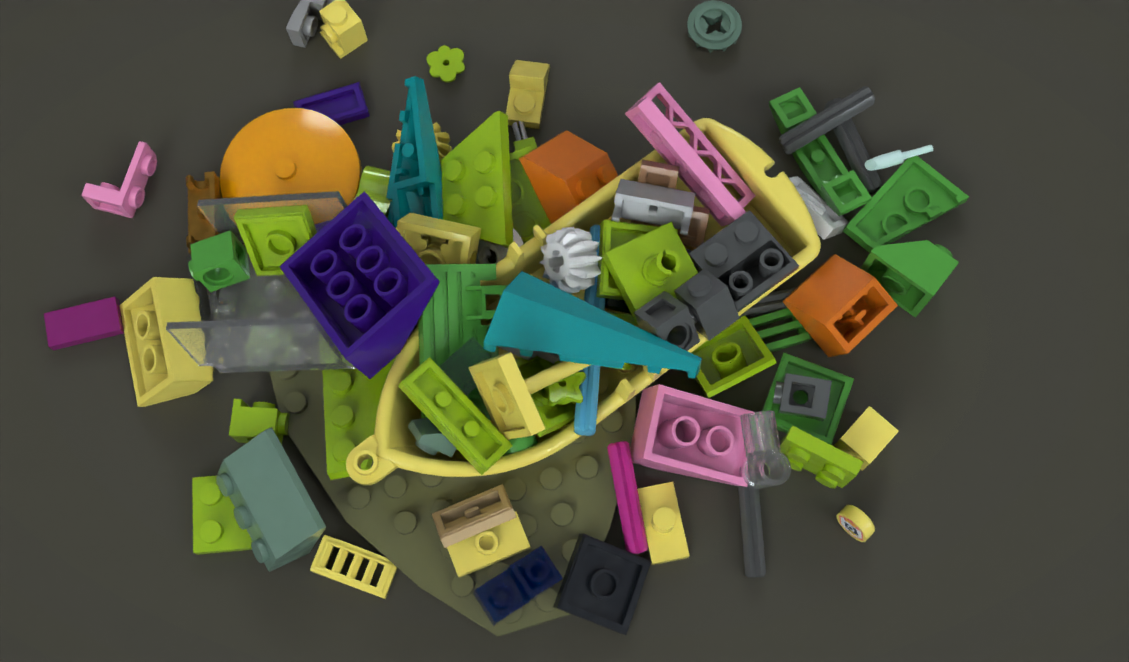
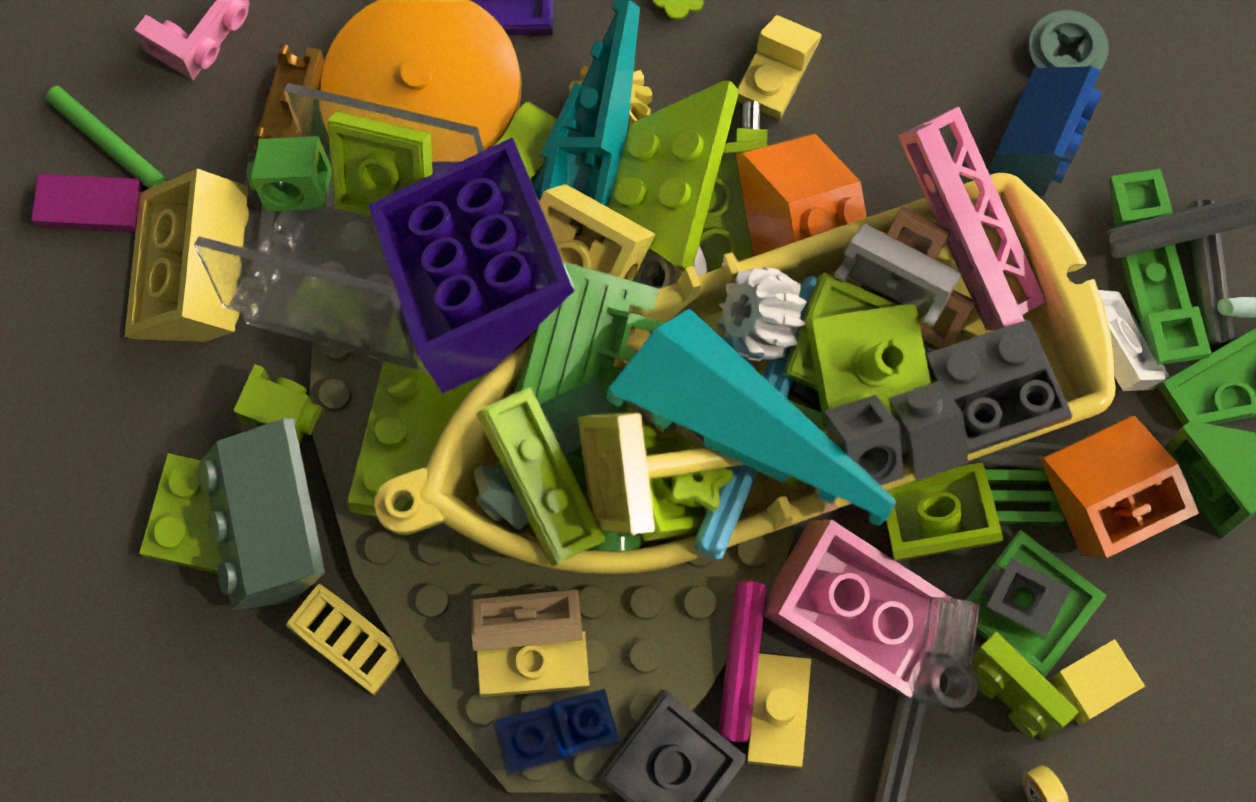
camera: 15 degrees right, 0 degrees up
(82, 275) = (104, 137): none -> bright green bar
(718, 79) = (1048, 125): none -> blue slope

